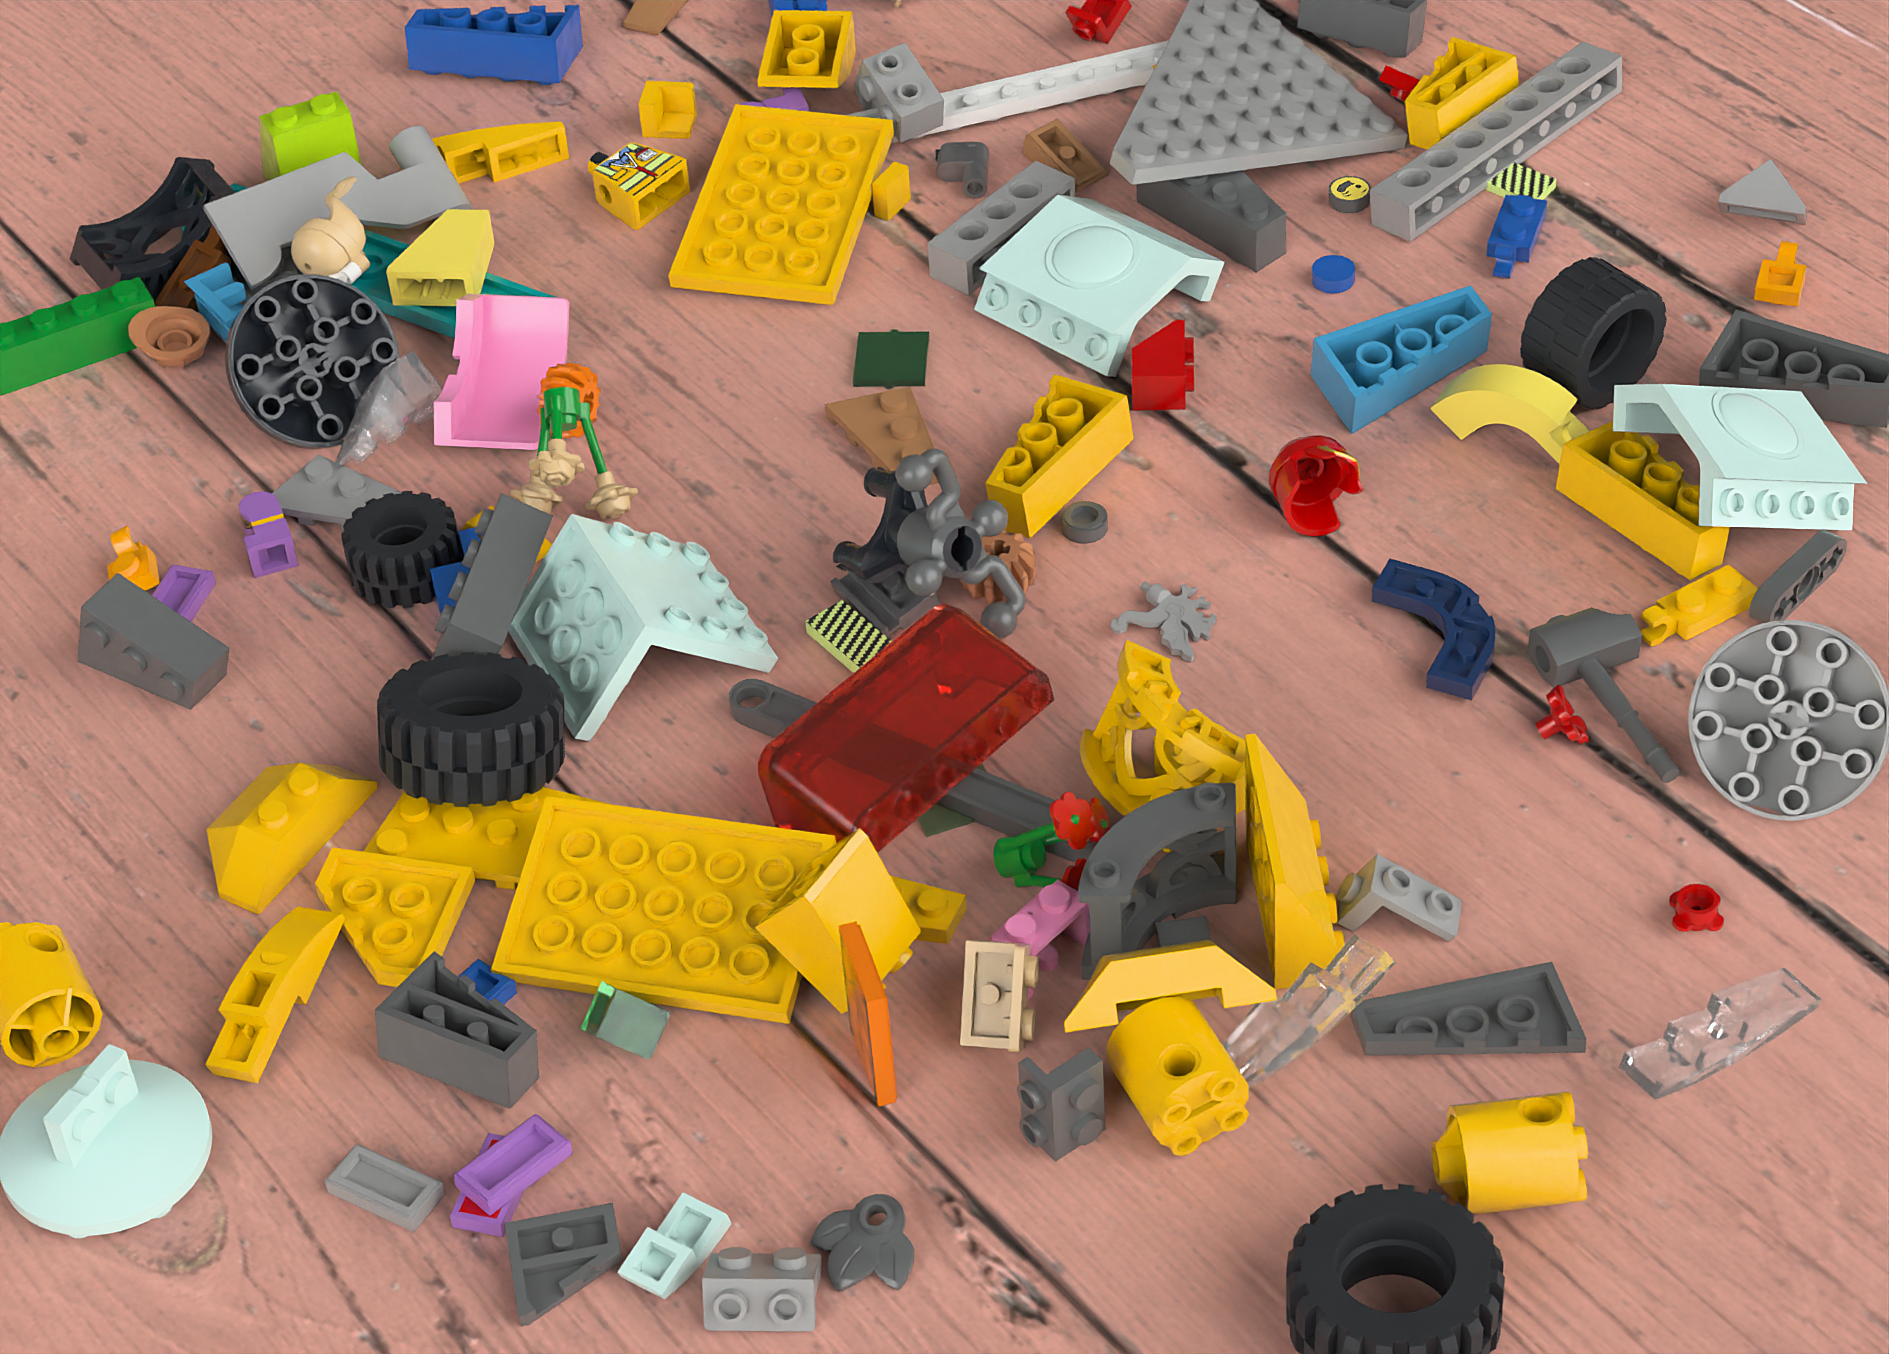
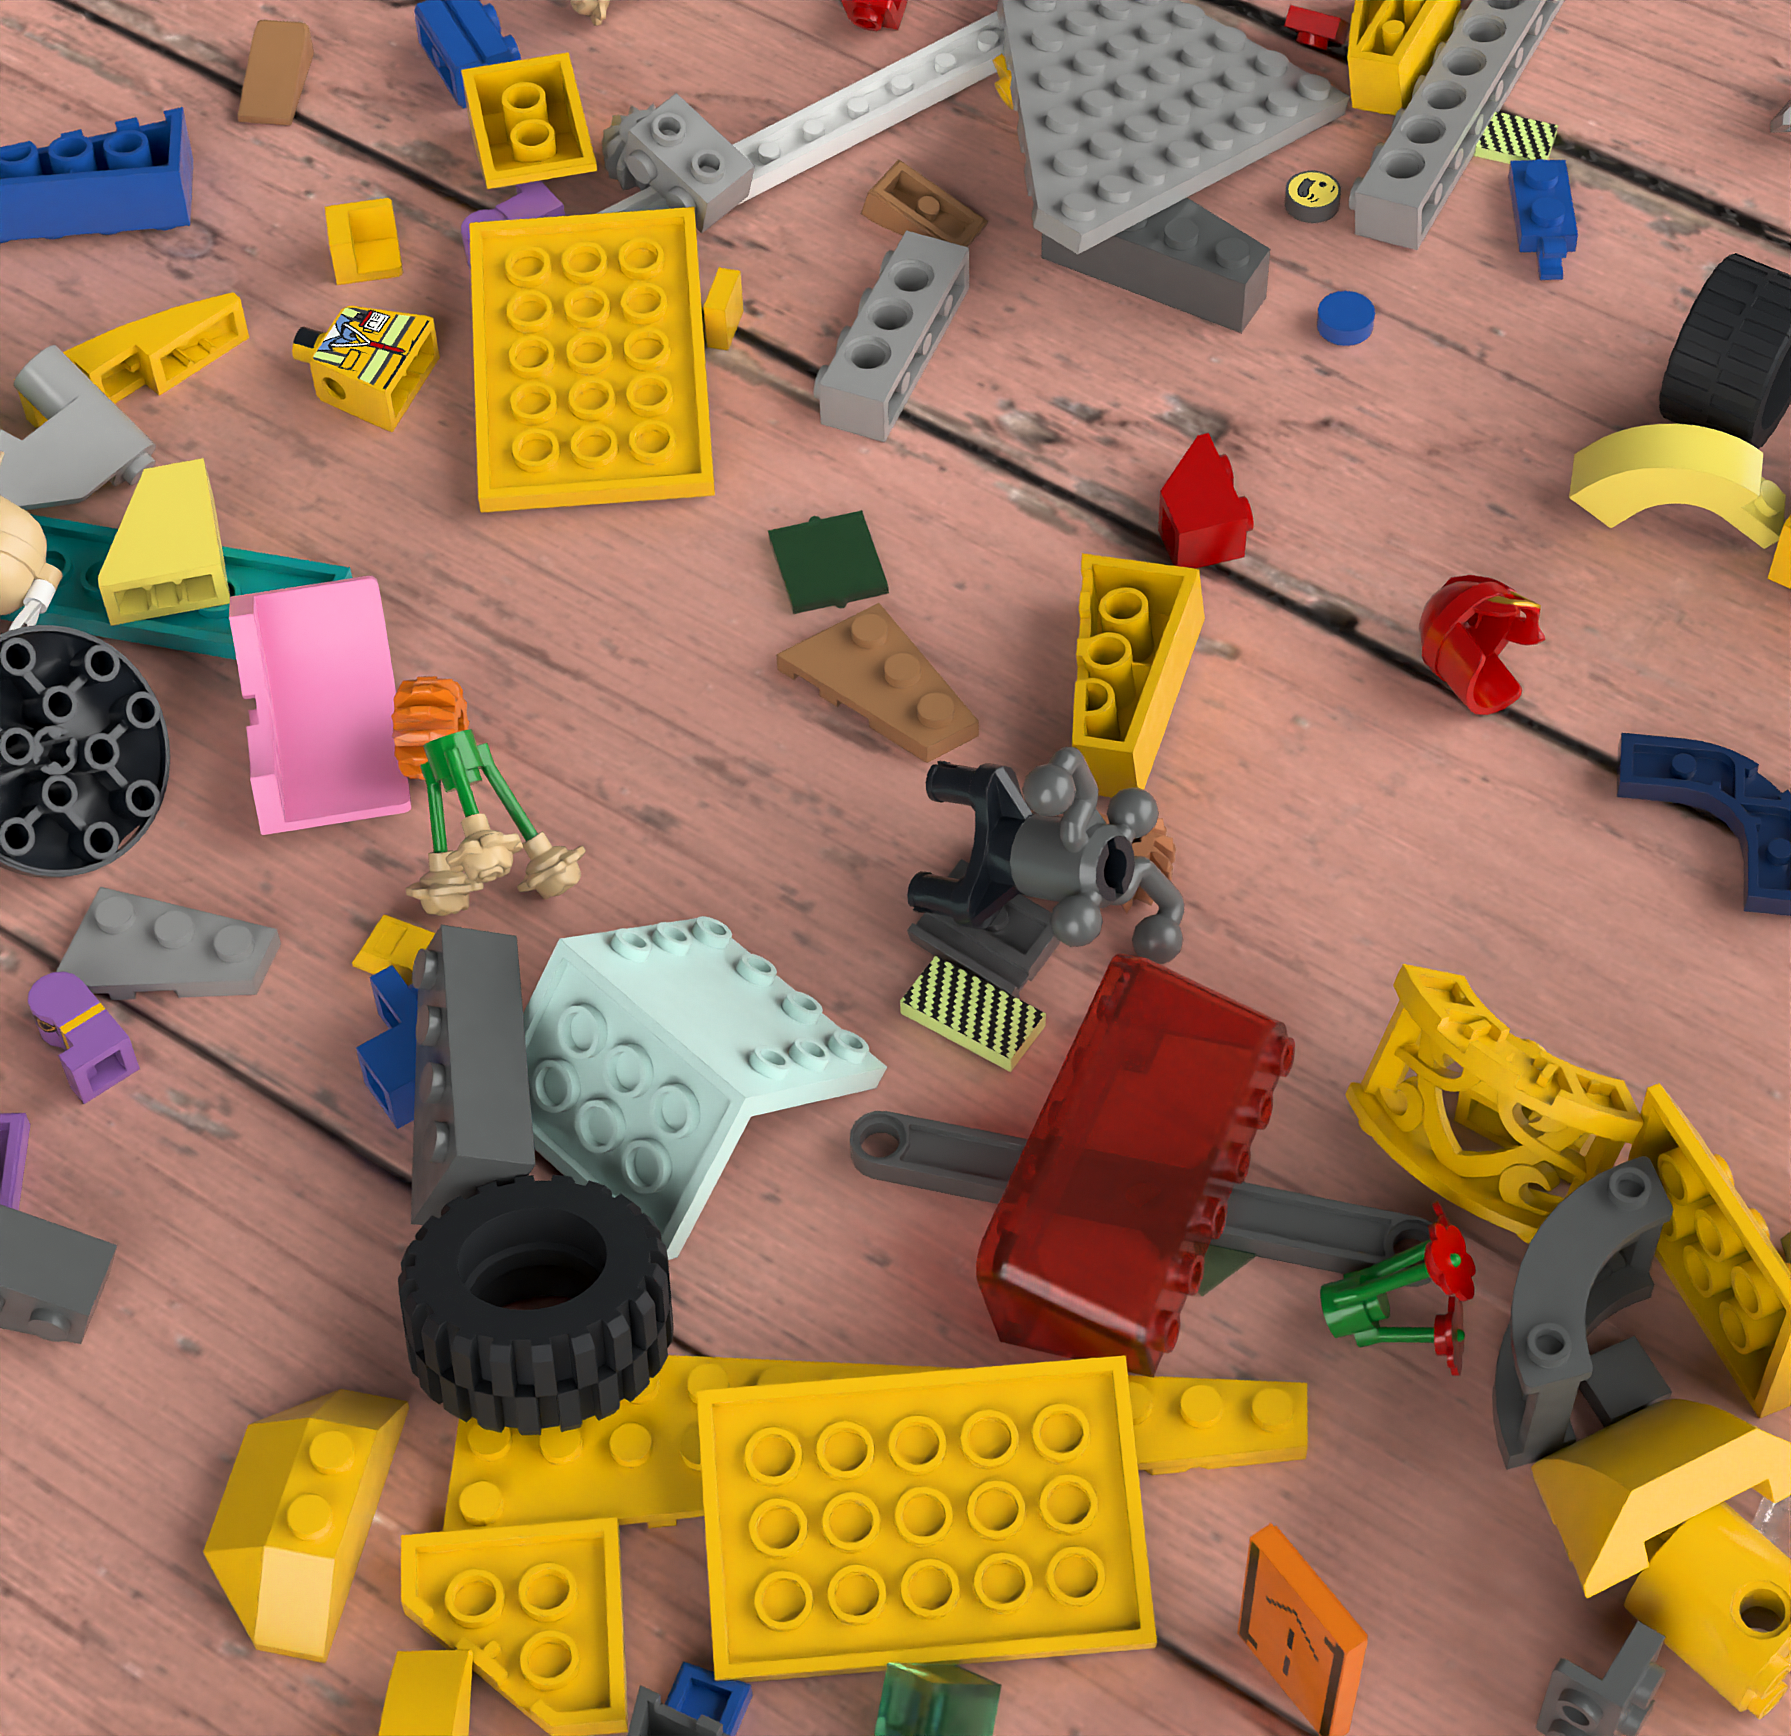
camera: 20 degrees left, 10 degrees up
(392, 401) = (175, 793): clear slope -> none
(395, 546) = (286, 978): black tyre -> none
(834, 890) = (1186, 1486): yellow slope -> none
(964, 163) = (800, 245): flat silver piece -> none
(997, 995) = (1442, 1543): tan bracket -> none
(1042, 919) = (1439, 1432): bright pink window -> none
(1084, 522) = (1196, 759): dark grey tile -> none
(1087, 277) = (1054, 397): light aqua panel -> none
(1171, 614) = (1382, 871): light grey piece -> none
(1398, 354) = (1490, 432): dark azure wedge -> none

